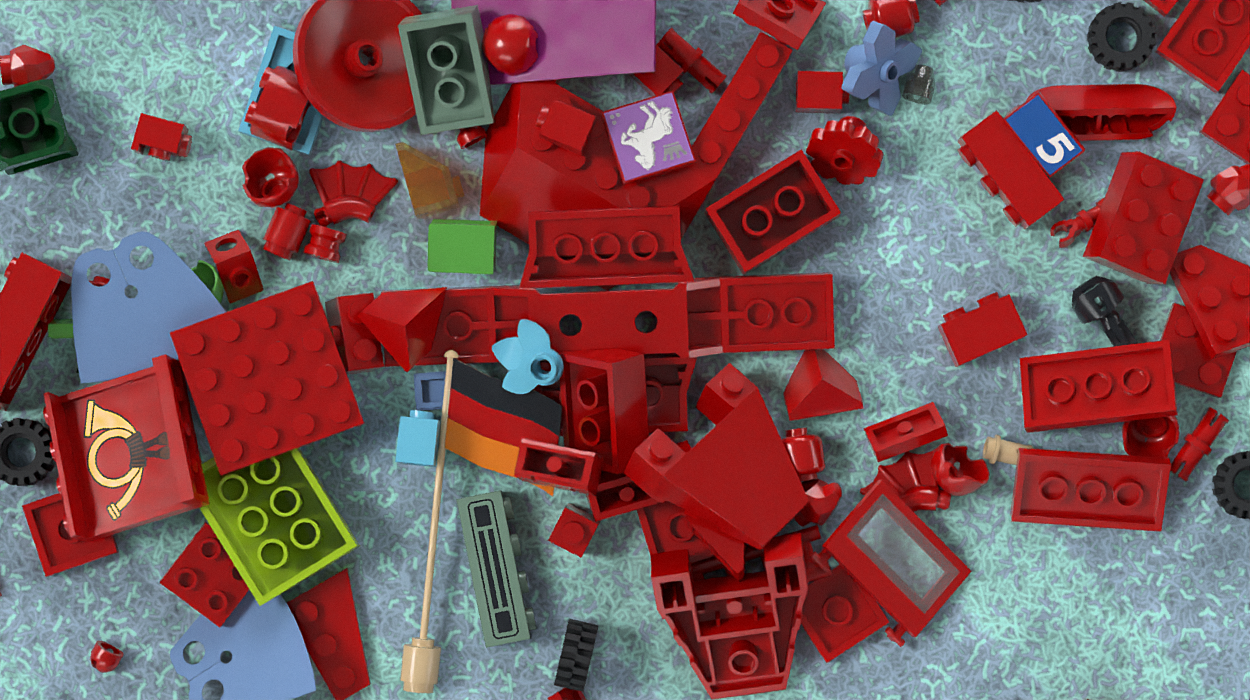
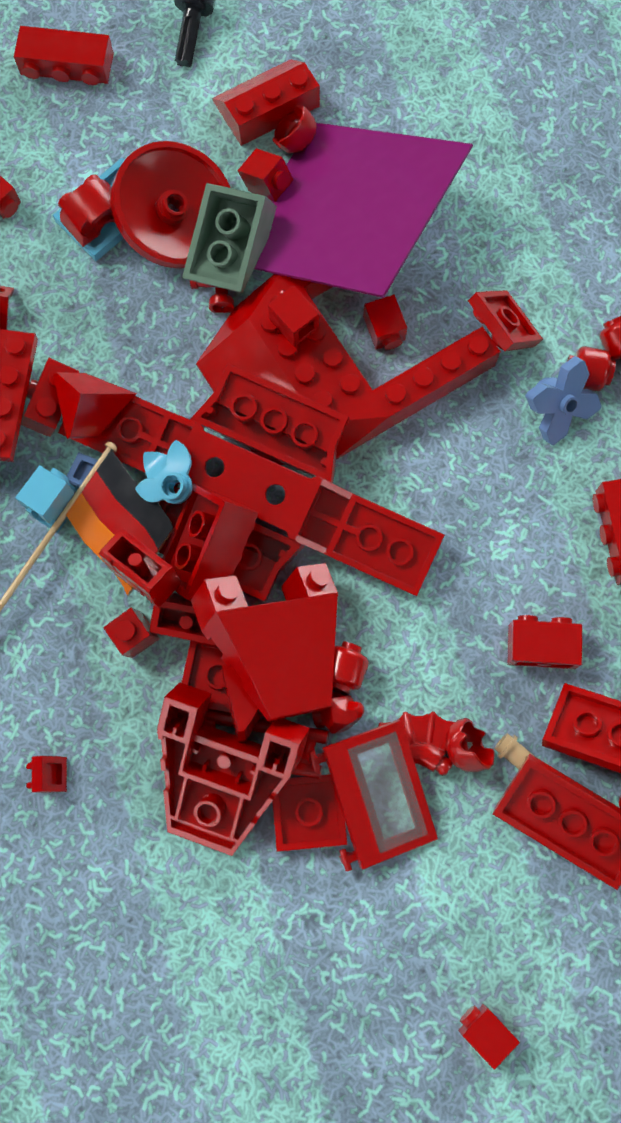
camera: 30 degrees right, 10 degrees down
(276, 190) = (52, 250): red hair -> none
(286, 231) = (45, 302): red brick -> none
(325, 243) = (68, 324): red wheel -> none
(349, 192) = (108, 300): red arm -> none
(428, 182) = (169, 319): clear orange slope -> none
(462, 246) = (167, 373): bright green piece -> none
(494, 568) = (52, 631): sand green brick -> none
(510, 44) = (284, 240): red hair -> none
(576, 655) = (74, 733): black tyre -> none
(648, 137) = (352, 357): tile -> none
(691, 60) = (417, 329): red pin -> none
(772, 212) = (421, 466): red brick -> none
(820, 92) = (505, 398): red brick -> none
(820, 387) = (389, 623): red slope -> none
(845, 151) = (502, 449): red plant -> none
(905, 432) = (441, 694): red plate -> none
(920, 83) = (589, 429): clear smoke hose -> none

